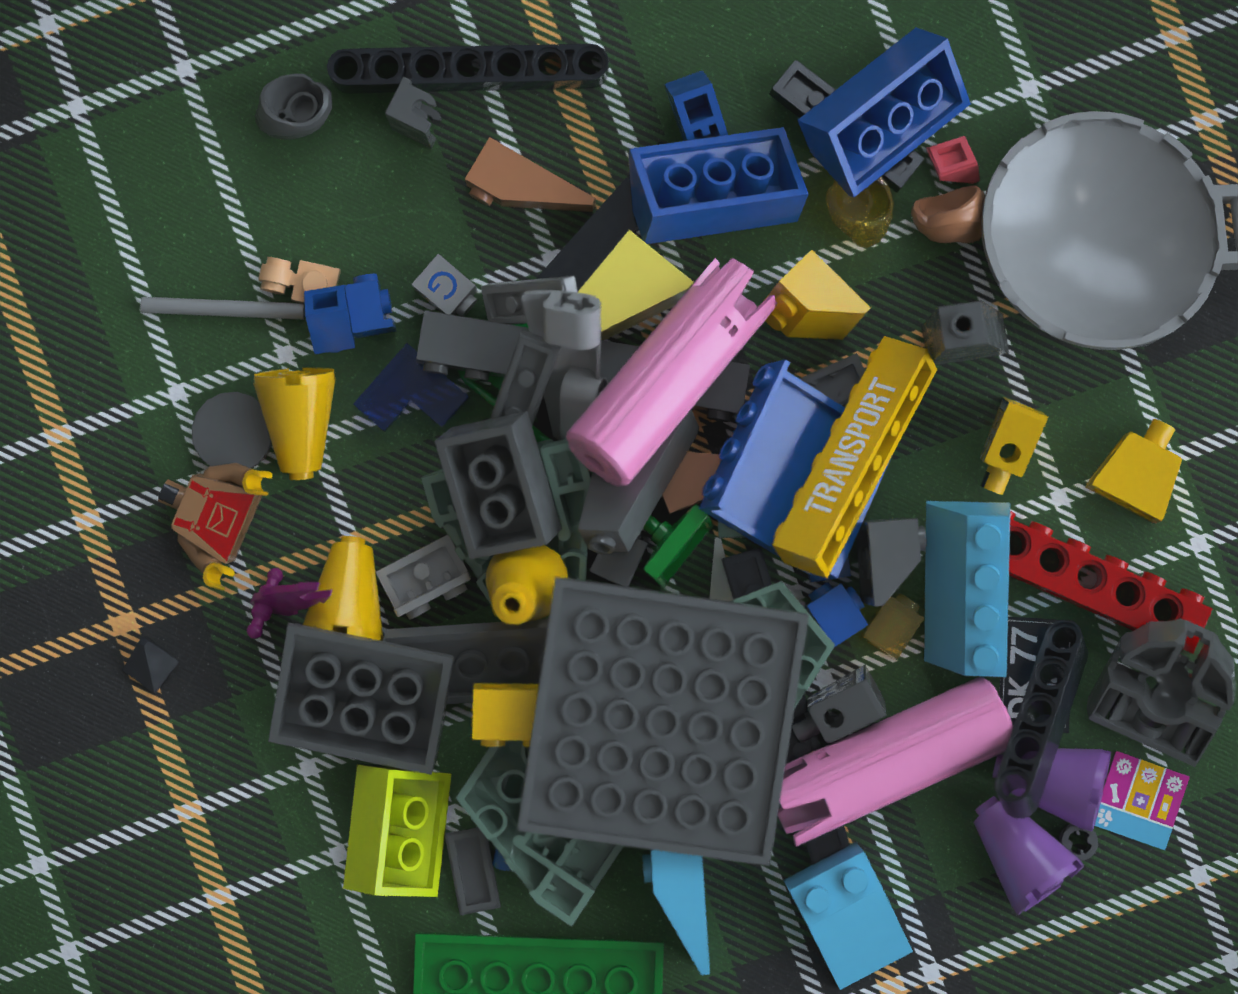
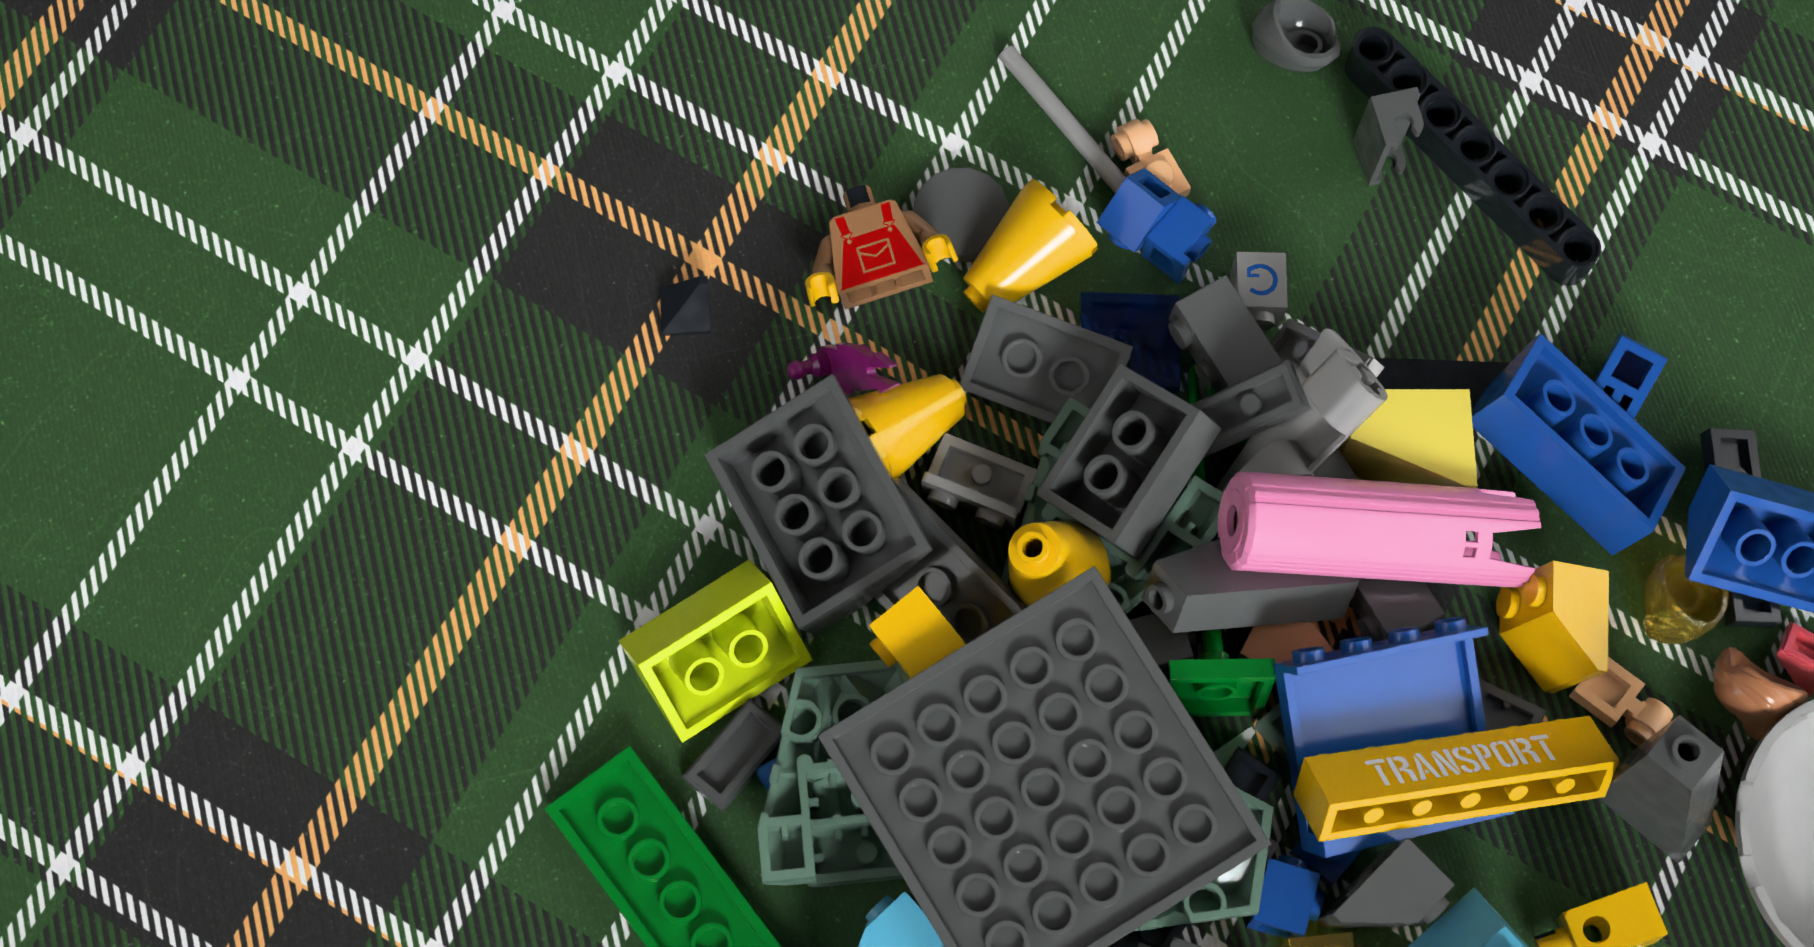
camera: 45 degrees right, 15 degrees down
(380, 471) = (1039, 360): none -> dark grey plate
(515, 181) = (1413, 281): nougat slope -> none
(883, 300) = (1615, 695): none -> light nougat plate

